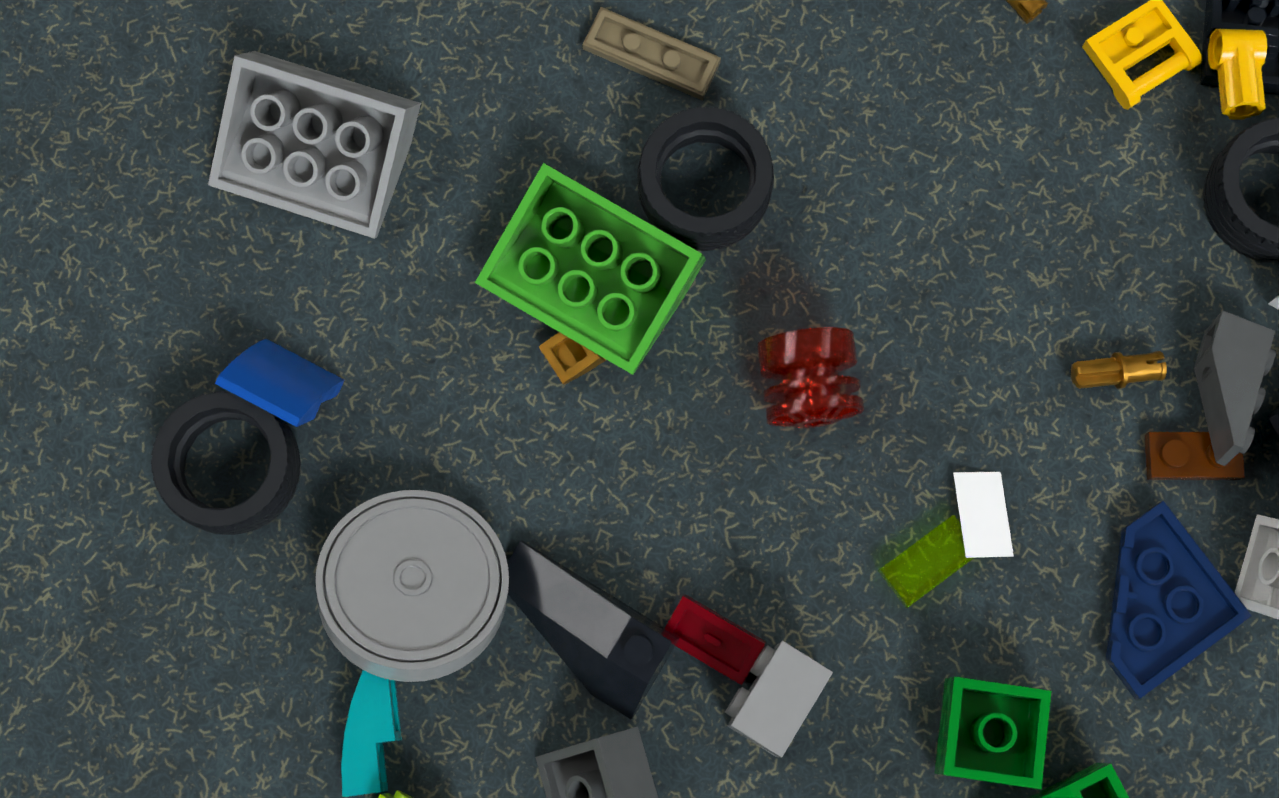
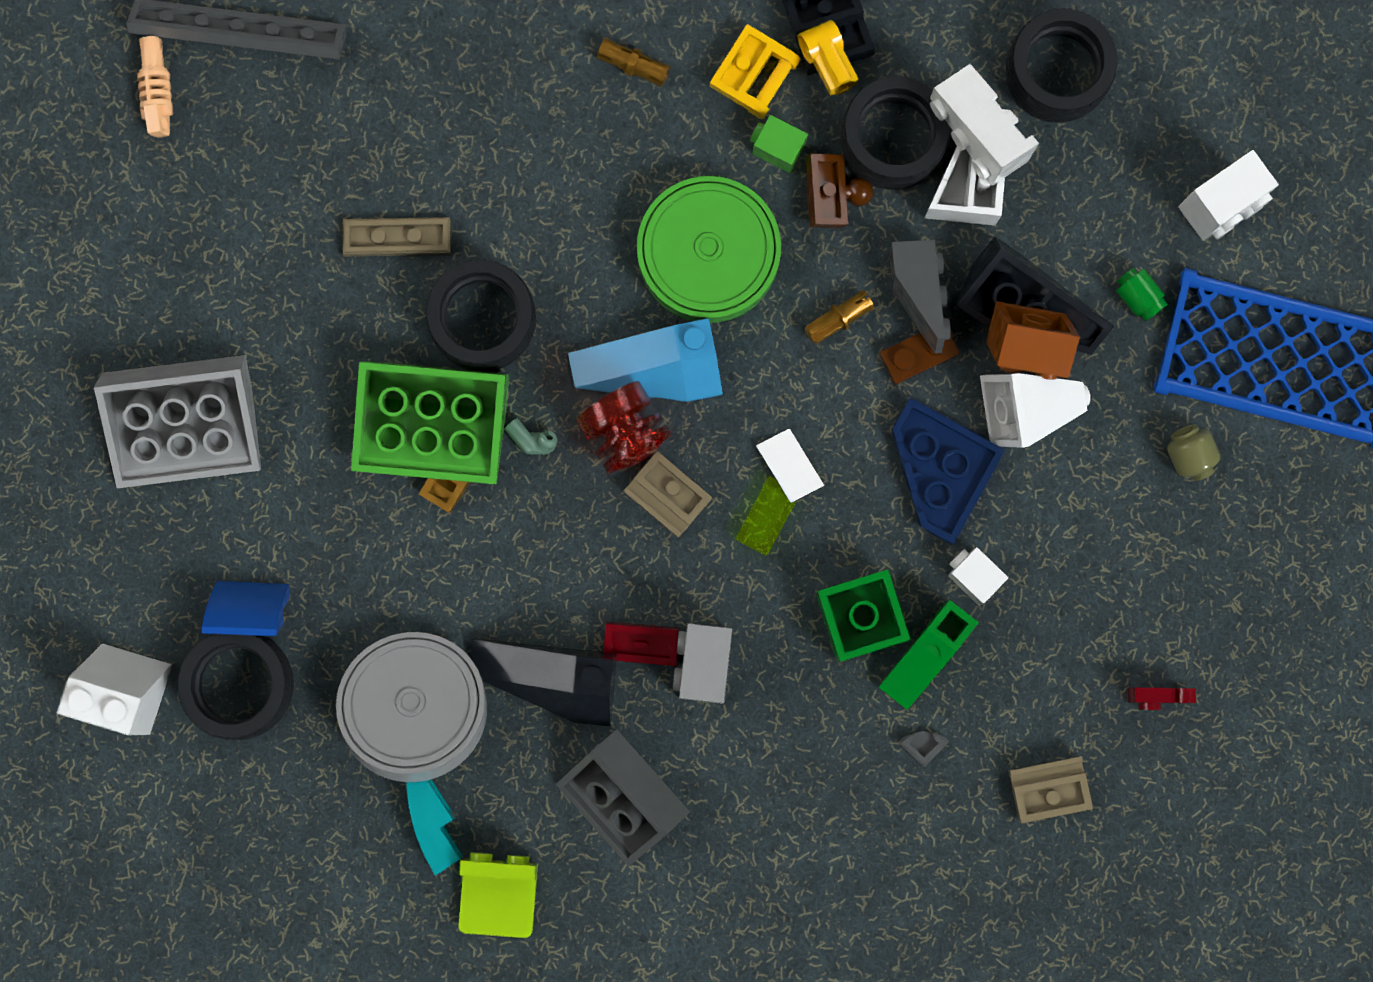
camera: 30 degrees left, 5 degrees up
(87, 406) = (116, 690): none -> white slope
(696, 349) = (531, 442): none -> sand green arm
(824, 480) = (667, 494): none -> dark tan plate
(897, 328) = (667, 362): none -> dark azure wedge
(1001, 223) = (708, 249): none -> bright green brick
(1135, 142) = (778, 143): none -> bright green brick
(1152, 749) = (976, 575): none -> white brick
(1170, 226) = (830, 193): none -> reddish brown plate

